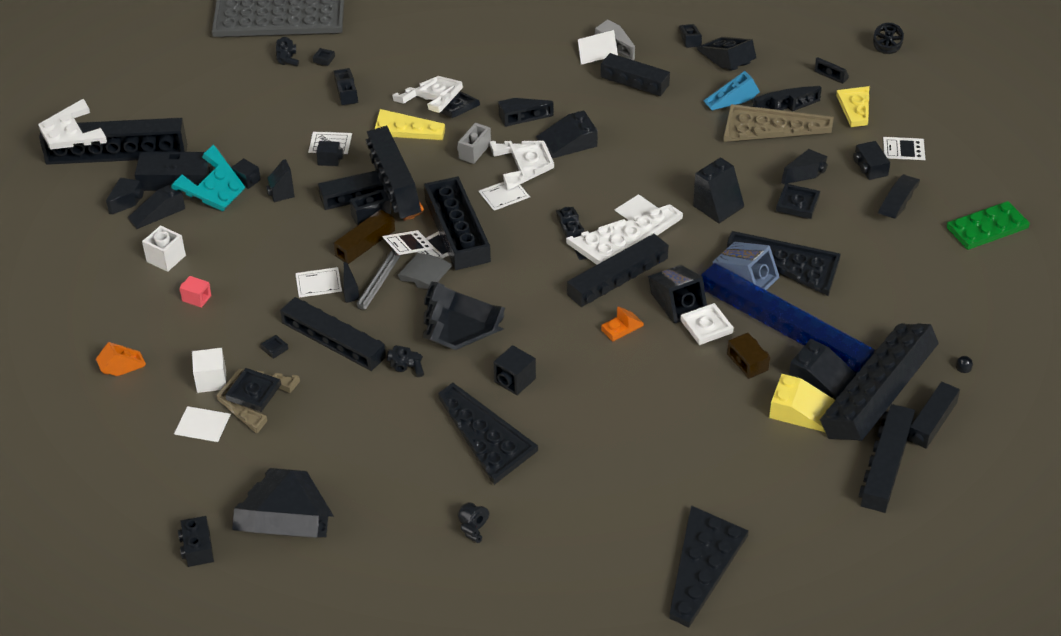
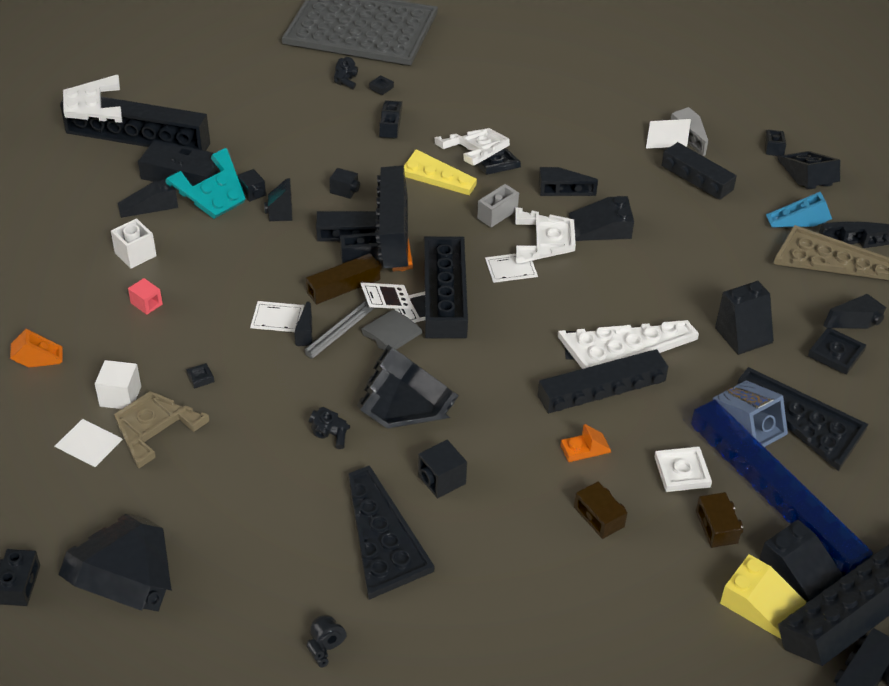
camera: 15 degrees right, 0 degrees up
(124, 195) = (122, 180): black slope -> none
(253, 389) = (151, 418): black plate -> none
(333, 333) = (266, 377): black brick -> none
(343, 138) = (364, 171): white sticker -> none
(569, 222) = (570, 314): black slope -> none
(635, 206) = (650, 313): white sticker -> none
(653, 370) = (600, 509): none -> dark brown brick
(678, 291) = (661, 422): black slope -> none

